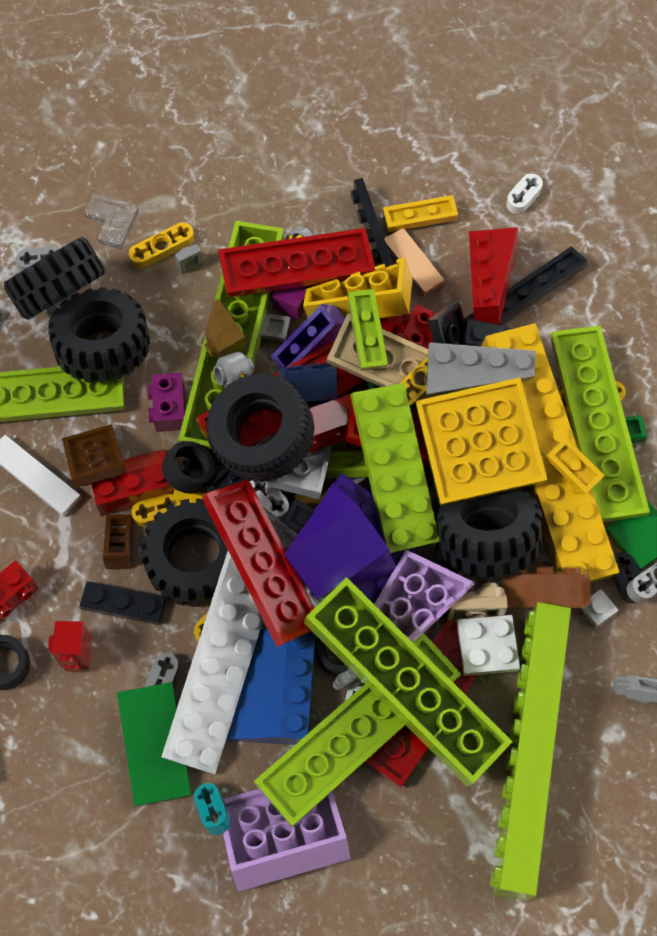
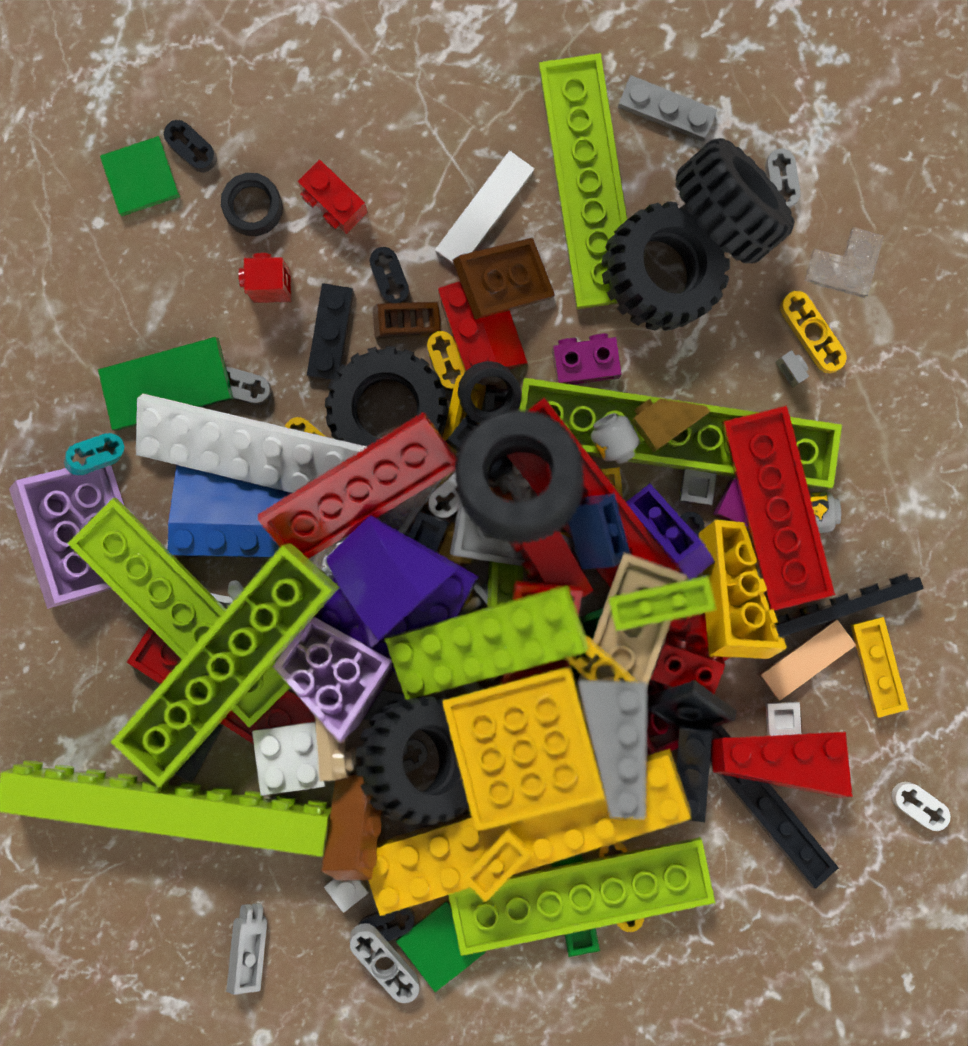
camera: 85 degrees right, 20 degrees up
(80, 552) = (396, 274): none -> black beam
(458, 278) = (783, 718): none -> white plate

